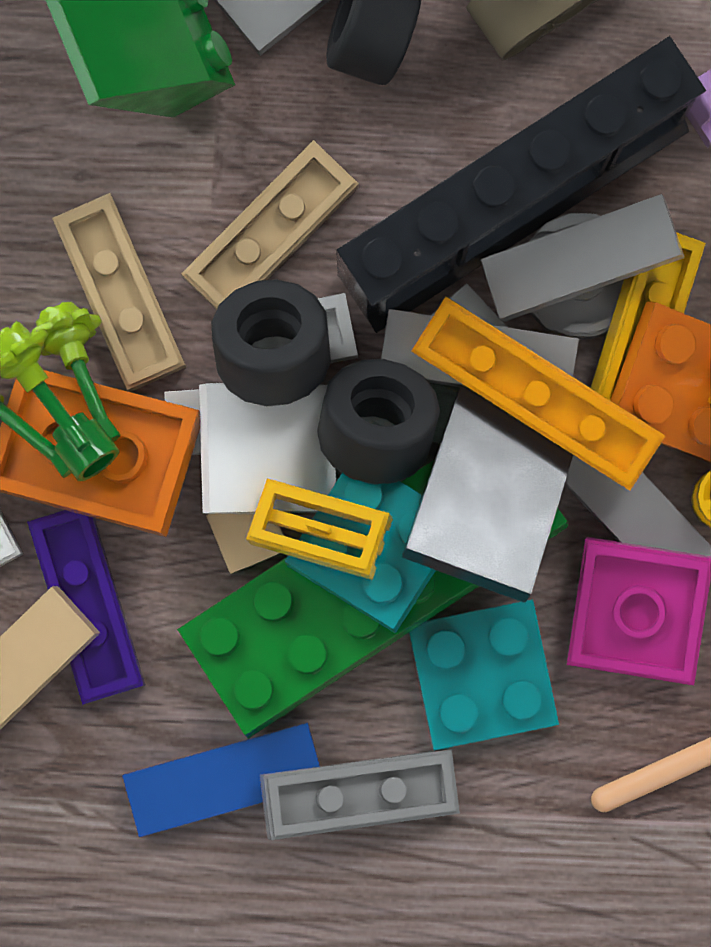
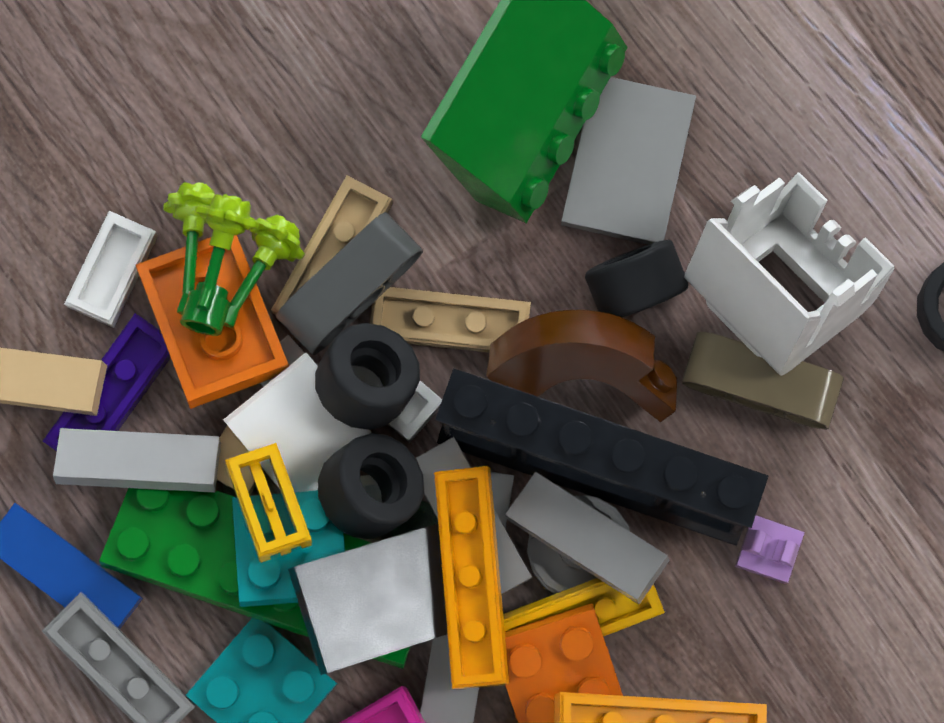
camera: 55 degrees right, 5 degrees down
(164, 293) = (349, 283): none -> dark grey beam
(175, 626) = (137, 460): none -> light grey tile
(399, 121) = (584, 346): none -> reddish brown arch

